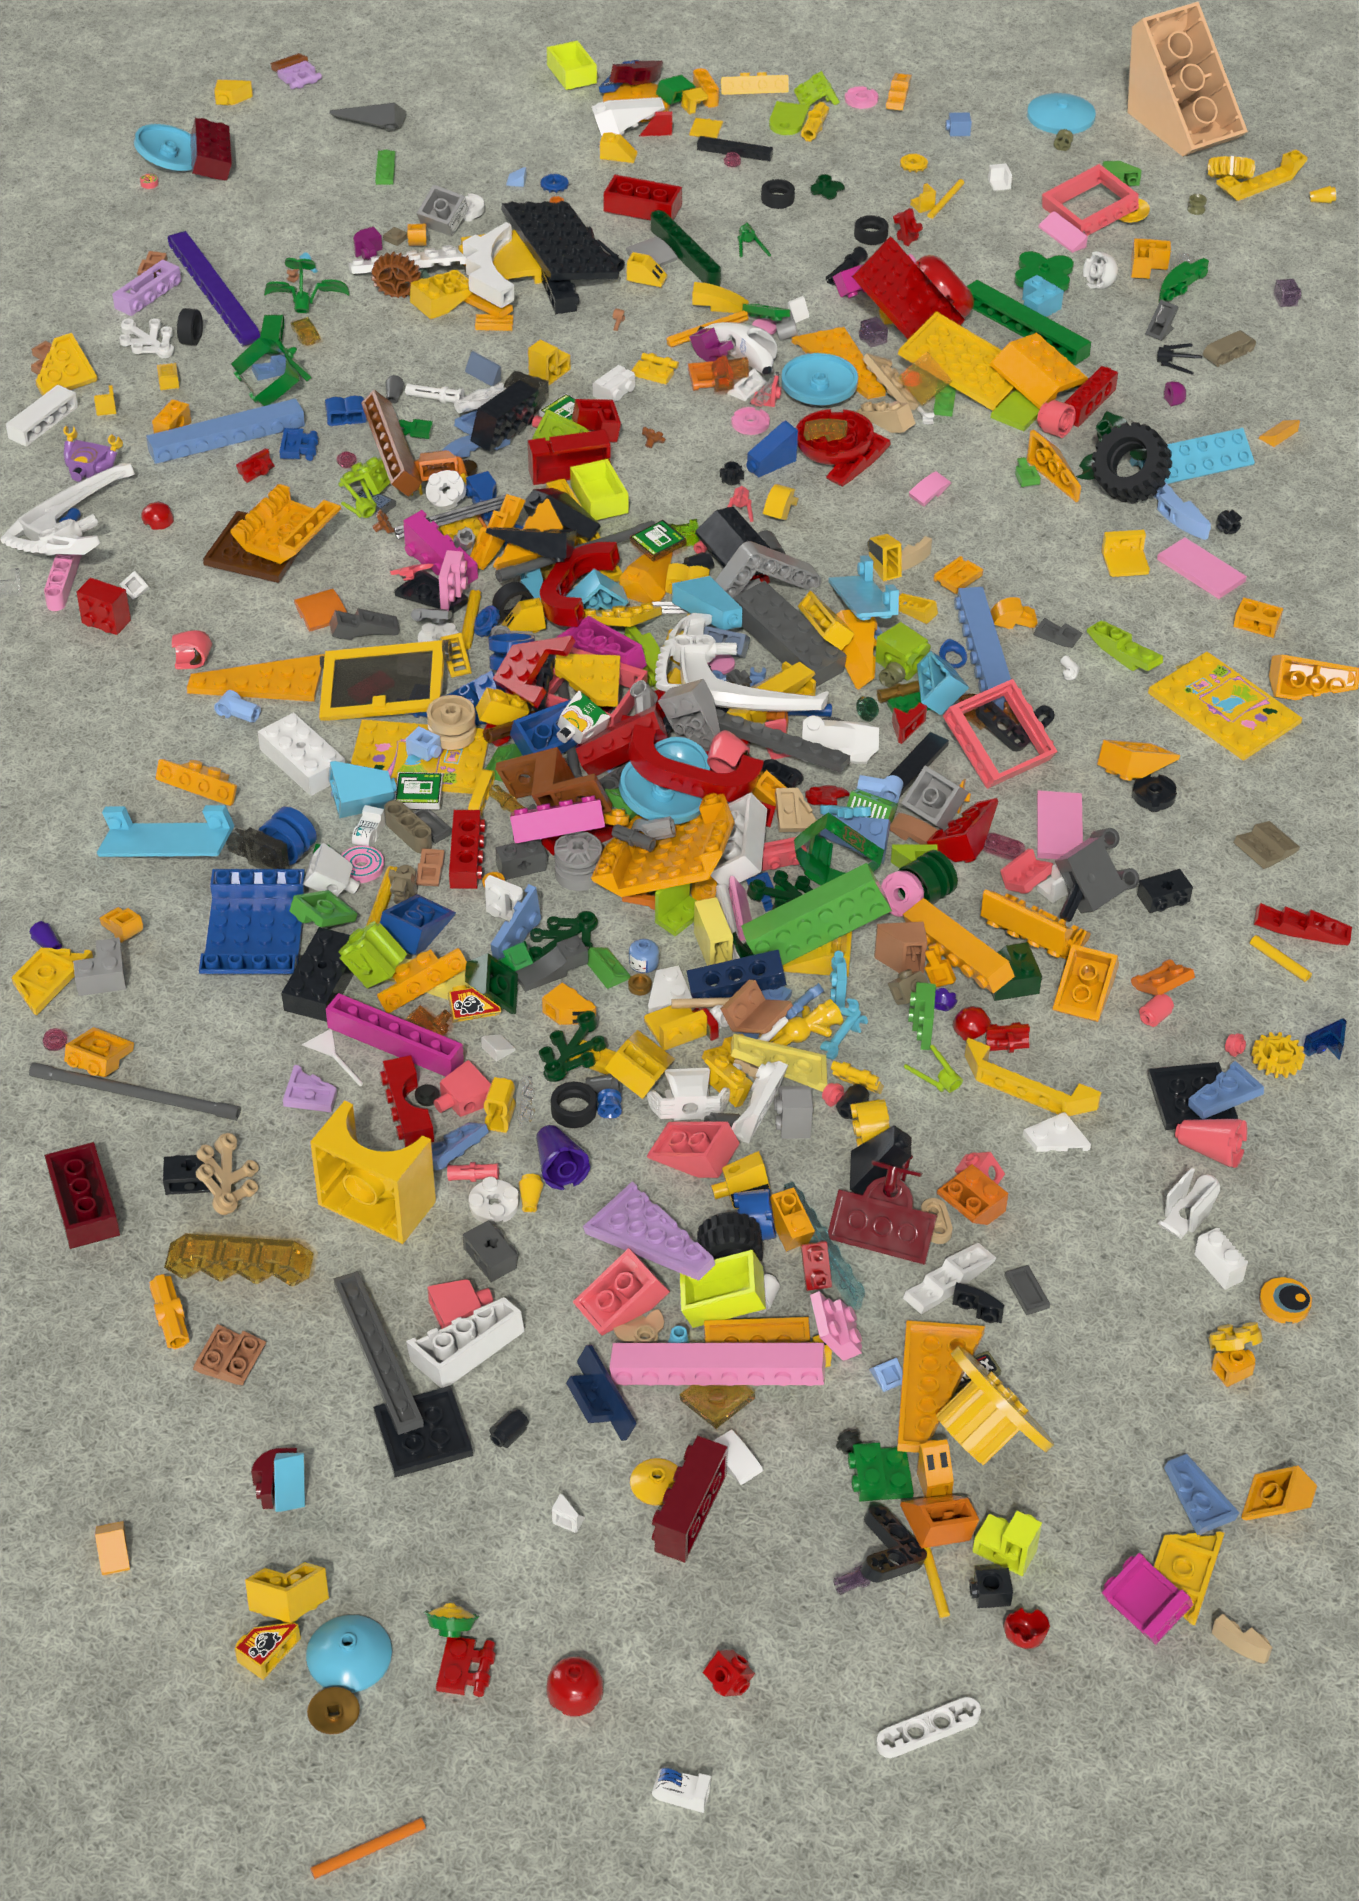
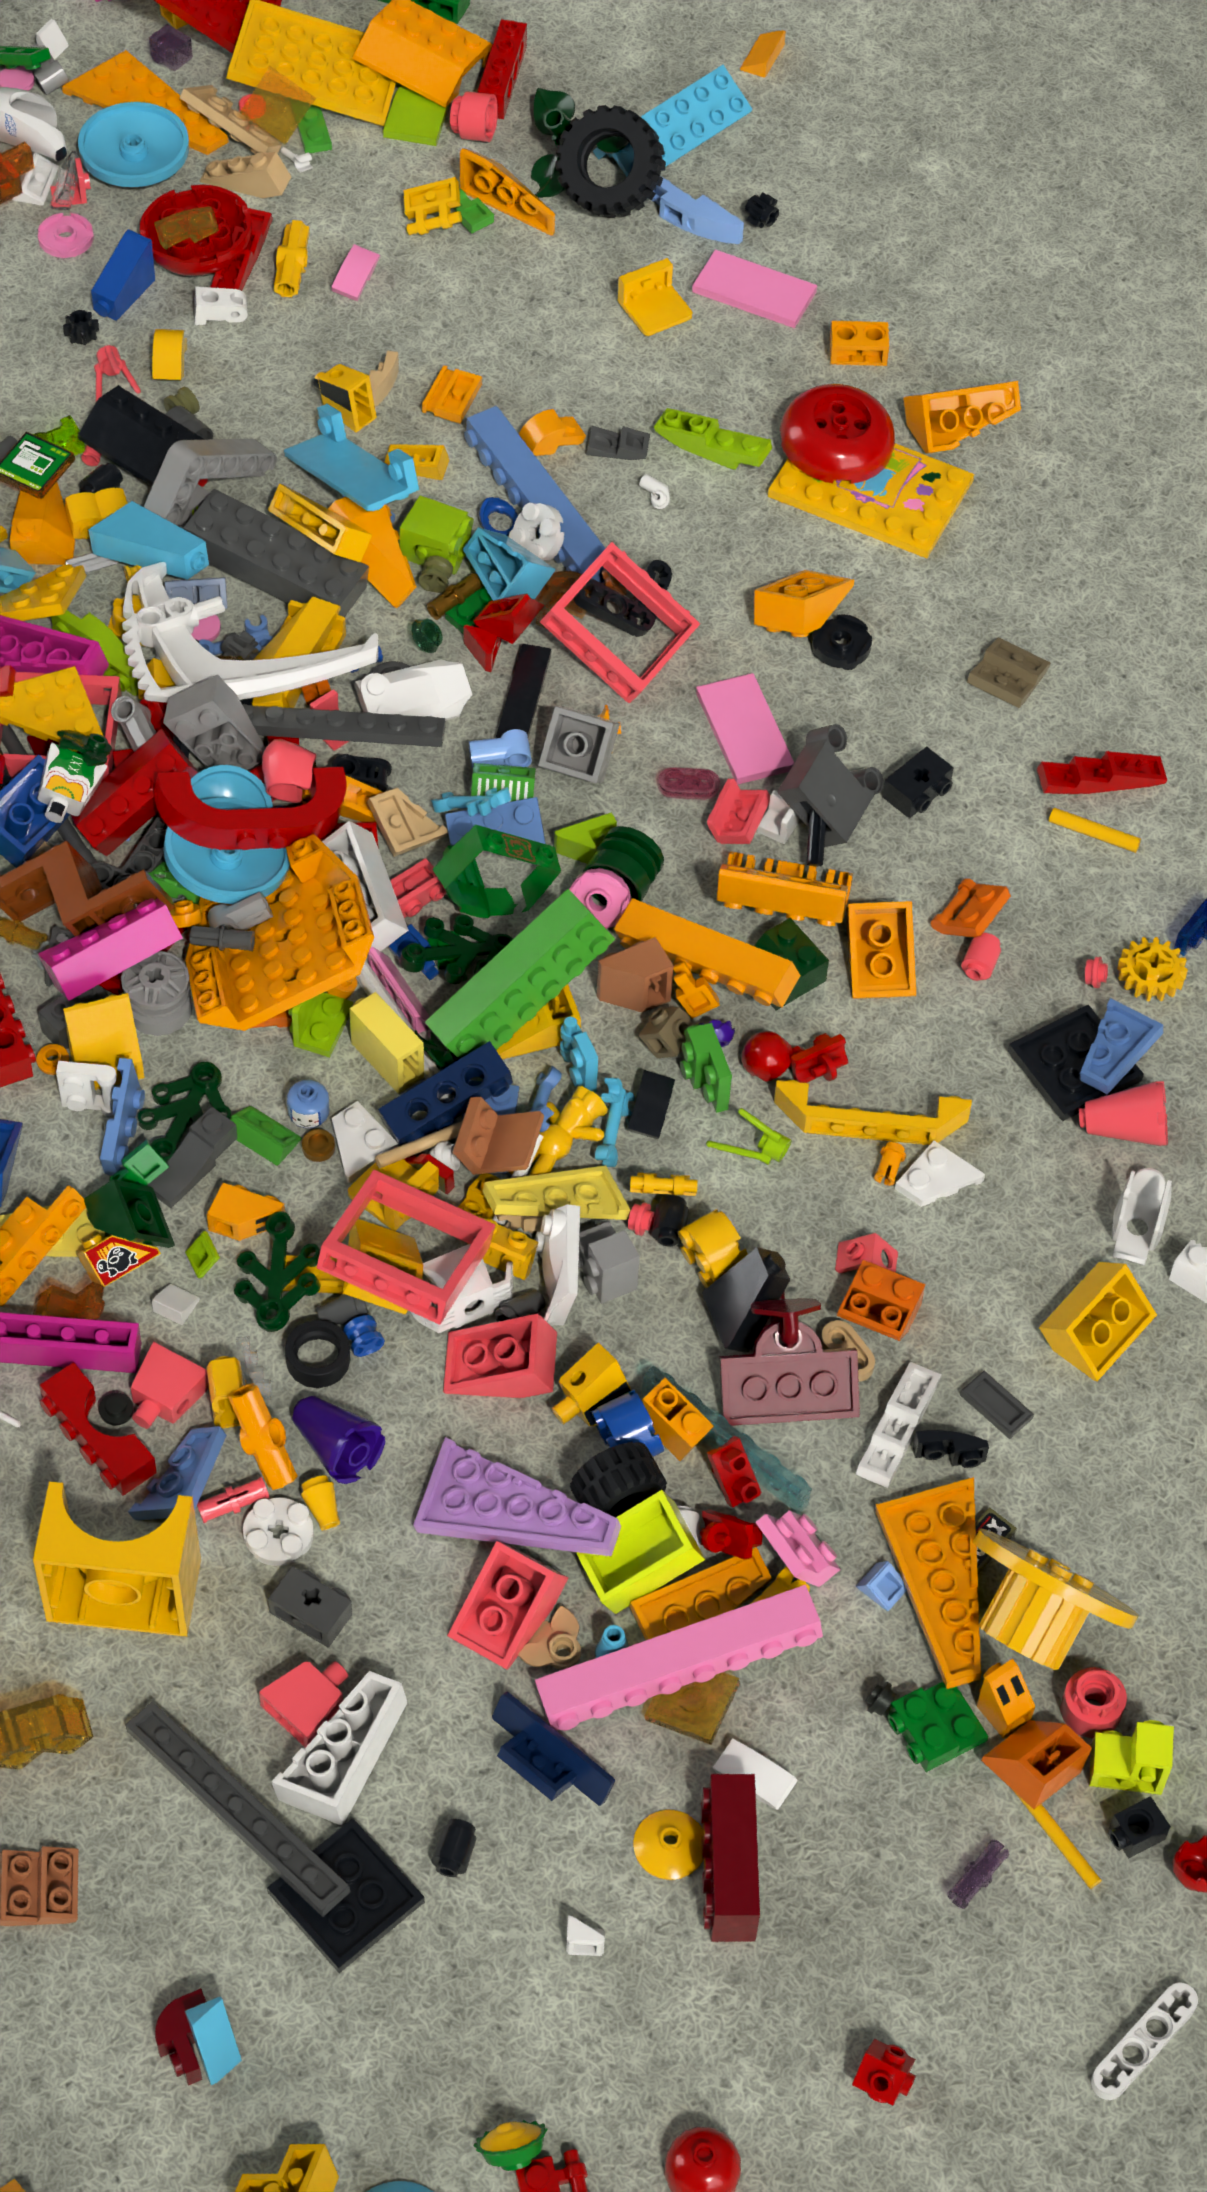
camera: 25 degrees left, 10 degrees up
(507, 1136) = (262, 1436): none -> light orange piece
(528, 864) = (103, 1033): none -> yellow slope
(530, 1023) = (202, 1254): none -> lime slope
(604, 704) = (93, 747): none -> dark green plate
(636, 1068) = (392, 1282): none -> coral window
(778, 531) = (185, 398): none -> olive wheel
(791, 1301) = (729, 1534): none -> red hips
(825, 795) = (431, 782): red plate -> none
(828, 483) = (219, 305): none -> white leg
(875, 1028) = (651, 1104): none -> black slope
(891, 470) = (291, 259): none -> yellow piece
(903, 1551) = (1021, 1826): black beam -> none
(909, 826) = (561, 794): nougat slope -> none
(925, 709) = (508, 616): none -> red slope
(966, 834) = (636, 781): red wedge -> none
(973, 666) = (529, 521): none -> white plate
(999, 1495) = (1098, 1685): none -> coral piece
(1000, 457) = (429, 199): none -> yellow plate
(1029, 1112) = (891, 1158): none -> light orange pin
(1127, 1260) = (1099, 1319): none -> yellow slope
(1174, 393) = (608, 33): magenta piece -> none
(1213, 665) = (855, 436): none -> red brick

